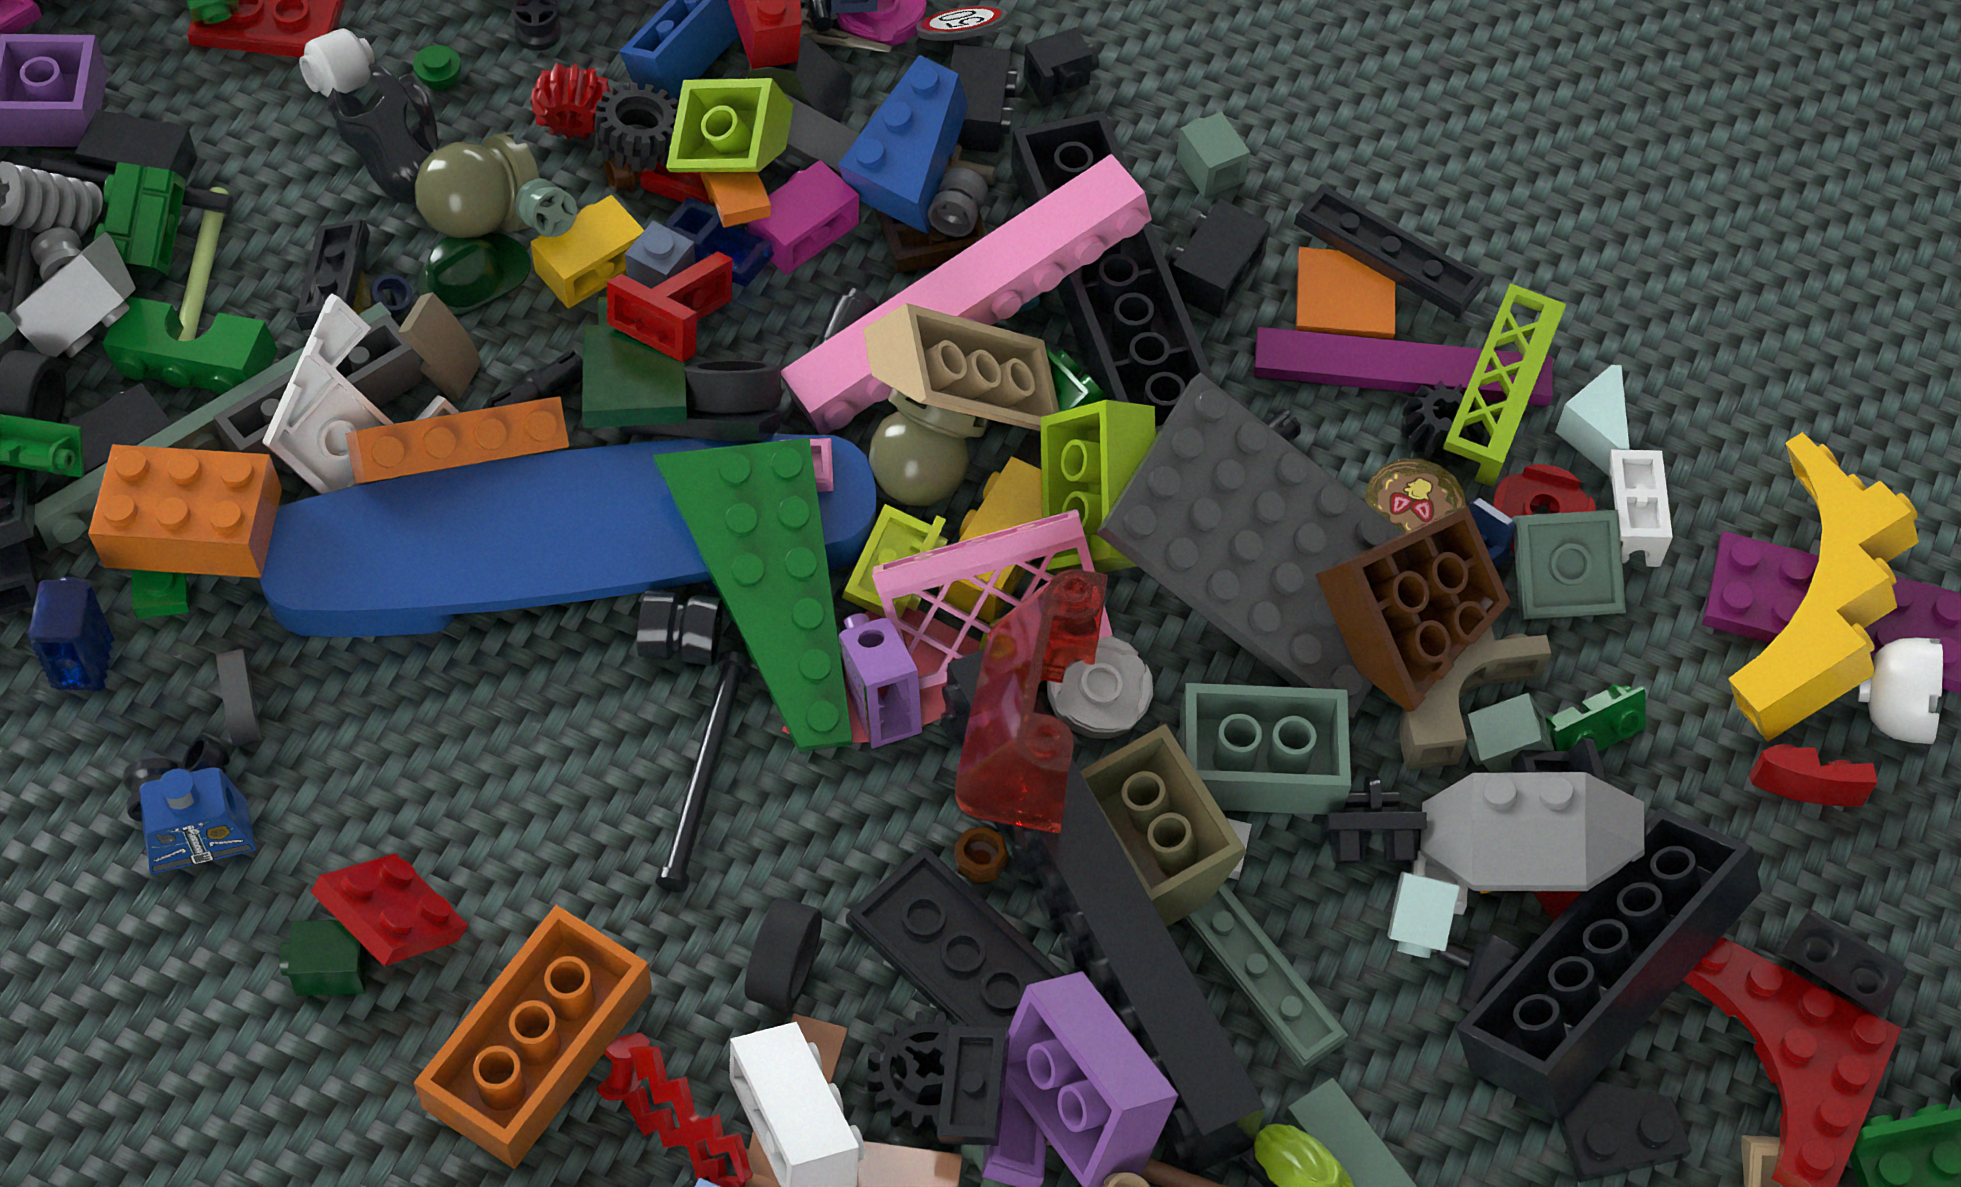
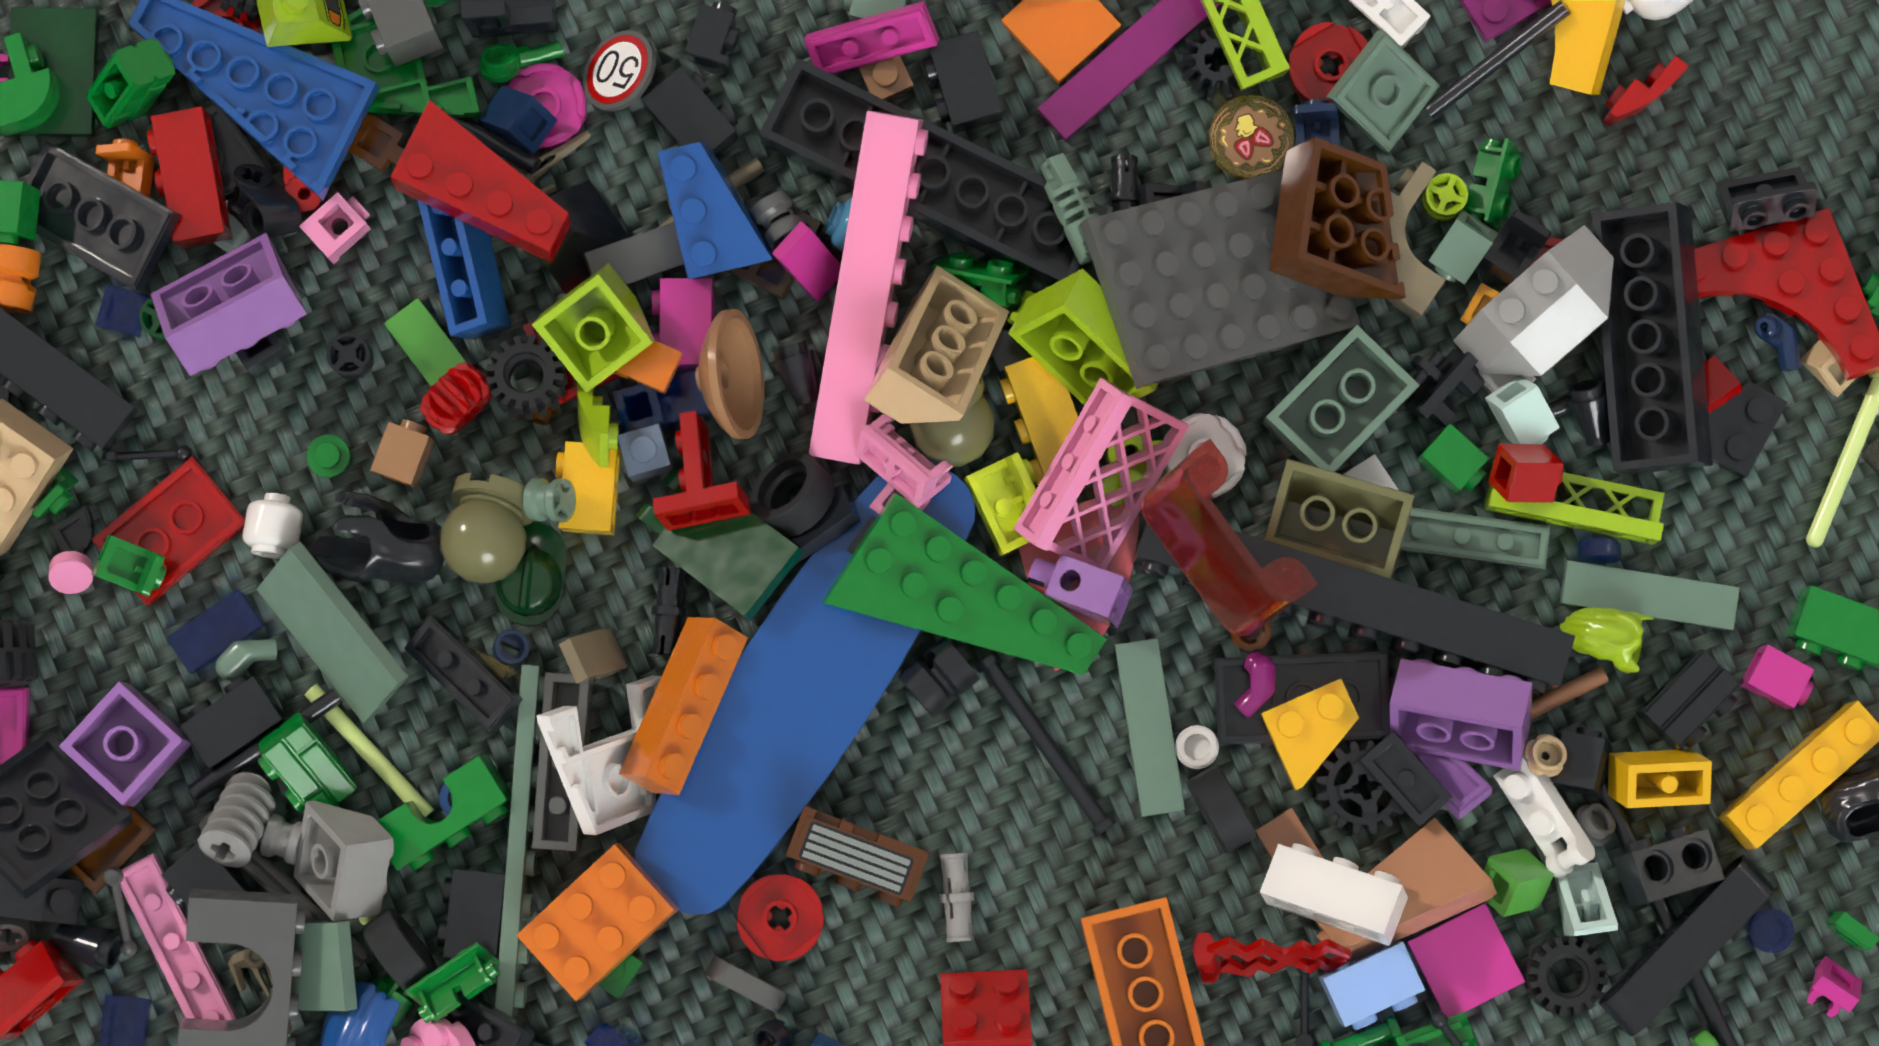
camera: 40 degrees left, 25 degrees up
(205, 120) = (242, 654): none -> sand green arm
(208, 96) = (215, 631): none -> clear blue tile
(280, 158) = (332, 632): none -> sand green tile
(337, 706) = (755, 914): none -> red plate
(444, 682) = (857, 856): none -> wedge
(484, 809) = (957, 897): none -> light grey pin
(488, 105) = (403, 453): none -> medium nougat brick
(601, 51) = (424, 341): none -> bright green tile
(649, 196) = (595, 427): none -> lime slope
(792, 259) = (732, 374): none -> medium nougat dish
(805, 843) = (1149, 727): none -> sand green tile
(831, 896) = (1196, 747): none -> white tile
(842, 427) = (900, 462): none -> bright pink hinge
(939, 896) = (1261, 683): none -> magenta arm
(939, 974) = (1310, 729): none -> yellow wing
(944, 232) = (808, 261): none -> dark pink tile
(1167, 206) = (886, 78): none -> medium nougat plate
(1182, 160) = (872, 39): none -> dark pink tile
(1208, 359) = (1069, 202): none -> sand green hinge
(1317, 892) = (1454, 460): none -> green brick
(1372, 952) = (1526, 473): none -> red brick
(1372, 1096) = (1599, 550): none -> clear blue tile
(1384, 1048) = (1588, 519): none -> lime fence
(1543, 680) = (1448, 188): none -> lime wheel
(1634, 1068) = (1720, 383): none -> red tile
(1700, 622) = (1497, 59): none -> black bar
(1742, 1093) = (1782, 337): none -> dark blue arm

